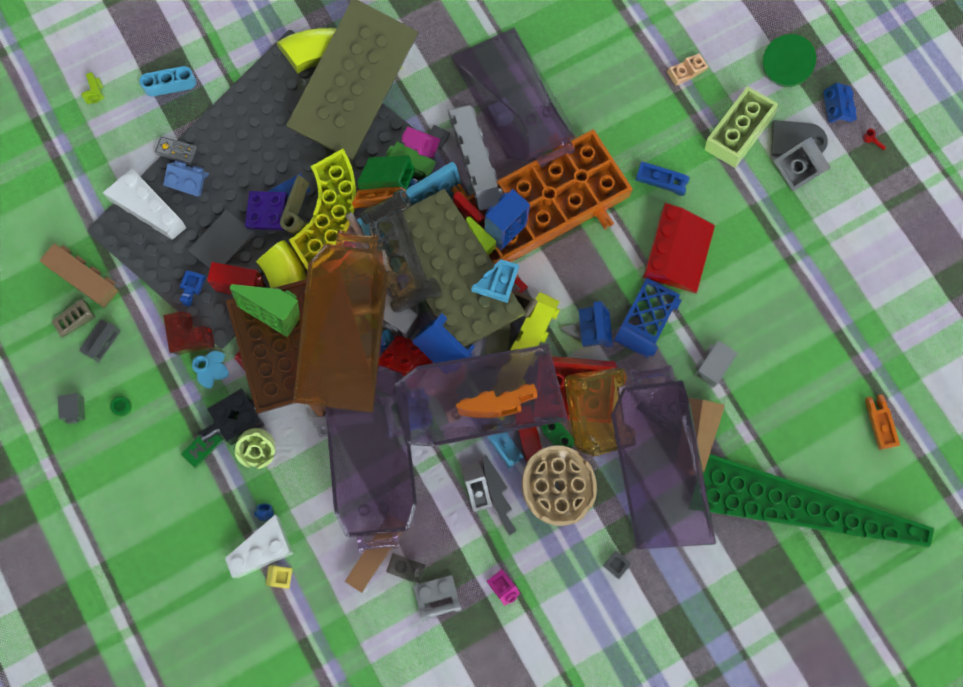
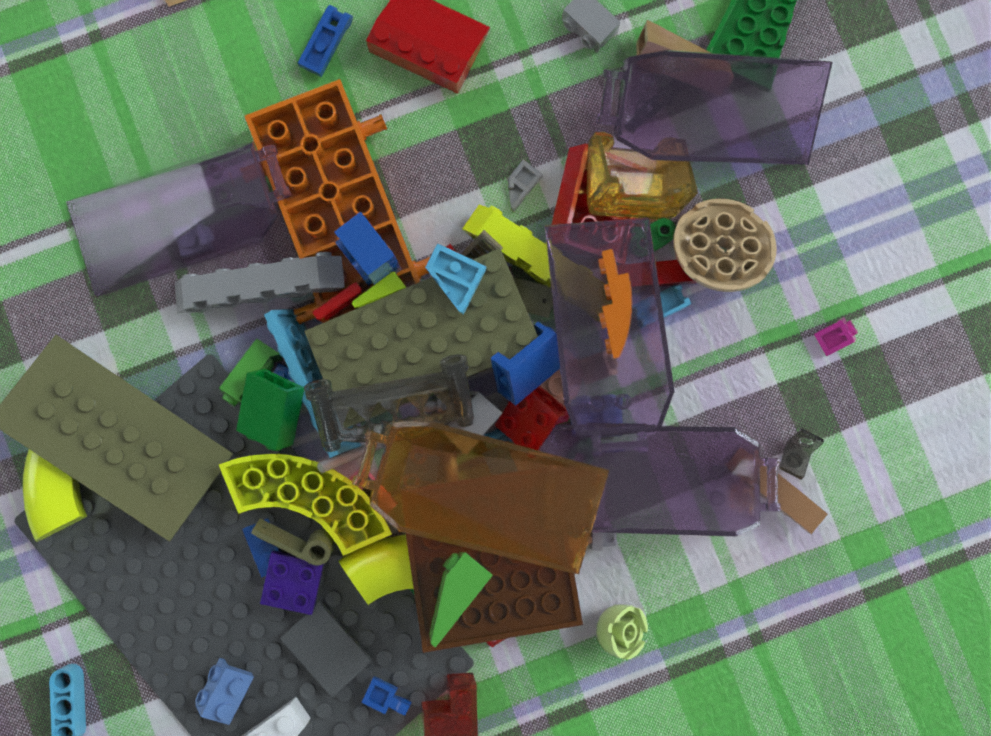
camera: 80 degrees left, 10 degrees up
(175, 150) = (178, 702): tile -> none
(199, 451) = (605, 701): green tile -> none
(213, 368) = (503, 678): medium azure plate -> none
(223, 276) = (390, 634): red brick -> none
(223, 417) = (580, 669): black brick -> none
(260, 549) = (753, 636): white wedge -> none
(264, 512) = (703, 628): blue plate -> none
(278, 576) = (785, 617): light yellow slope -> none
(371, 197) = (300, 427): orange hinge -> none
(421, 142) = (224, 355): dark pink window -> none
(435, 591) = (828, 420): light grey plate -> none
(441, 134) = (215, 333): dark grey plate -> none
(476, 487) = (706, 350): light grey slope -> none
(496, 487) = (715, 326): dark grey slope -> none
(596, 325) = (520, 164): blue bracket -> none
(617, 564) = (826, 191): dark grey plate -> none
(638, 339) = (544, 111): blue piece -> none

